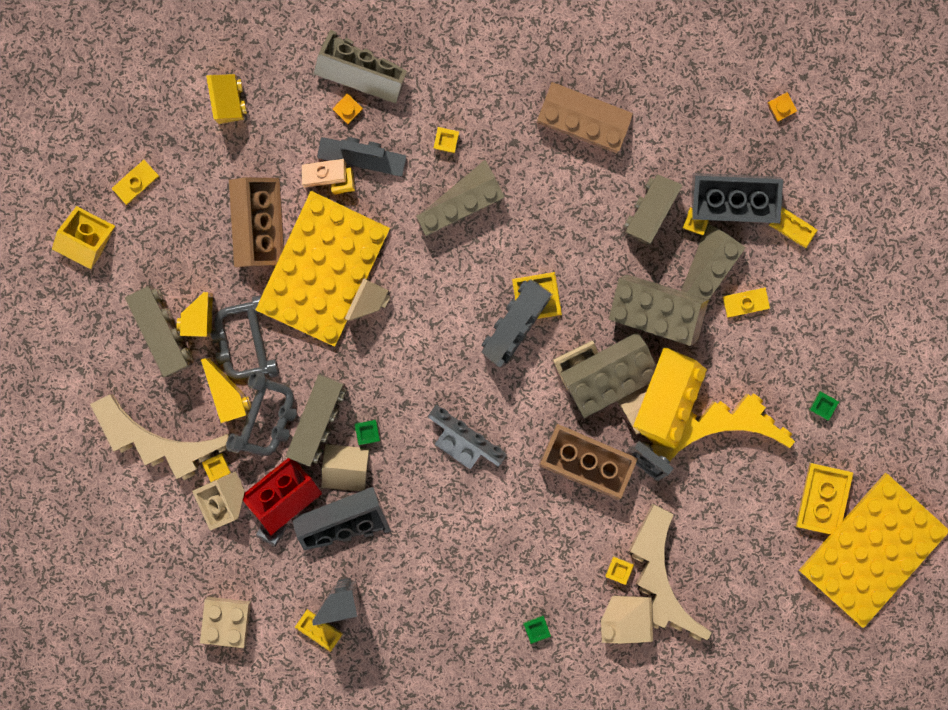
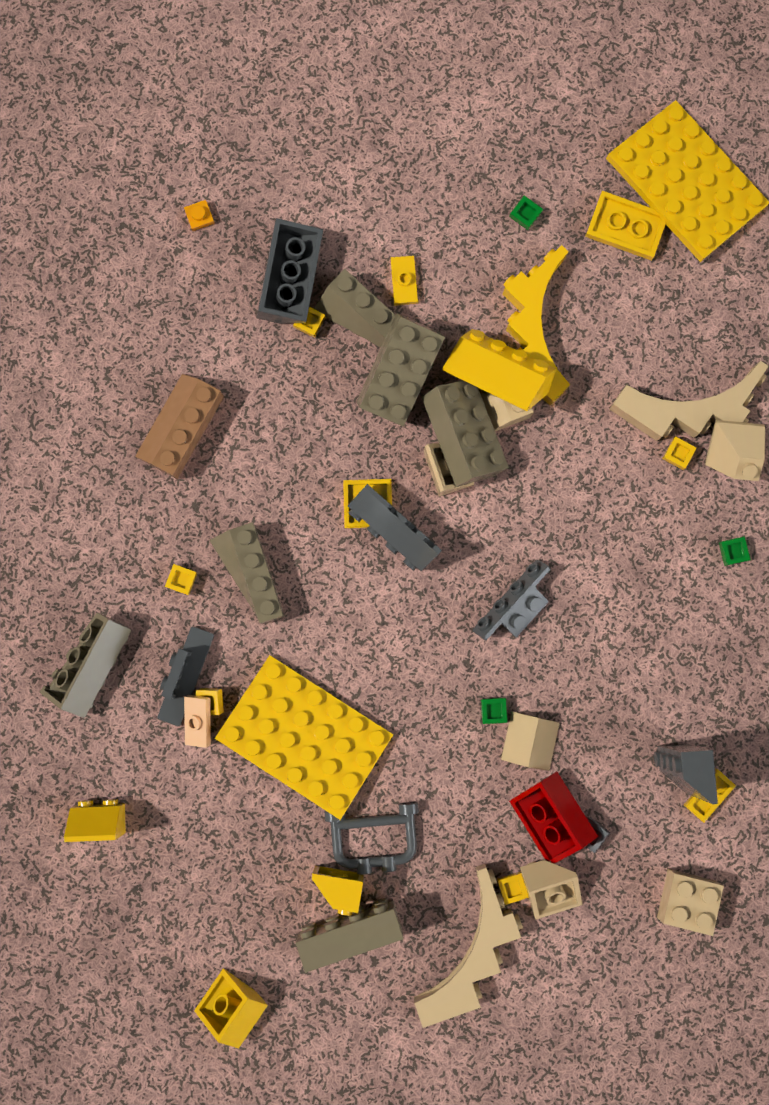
camera: 85 degrees left, 5 degrees down
(135, 182) = (176, 938): yellow plate -> none
(228, 398) = (433, 866): yellow slope -> none
(256, 221) = (240, 805): medium nougat slope -> none
(279, 433) = (422, 828): dark grey bar -> none
(315, 420) = (474, 768): dark tan brick -> none
(341, 520) = (589, 753): dark grey wedge -> none
(347, 108) = (130, 684): light orange plate -> none
(367, 300) = (346, 690): tan slope -> none
(588, 462) = (557, 470): medium nougat slope -> none
(652, 209) = (289, 363): dark tan slope -> none
(654, 465) = (565, 403): dark grey plate -> none
(794, 228) = (332, 218): yellow plate -> none

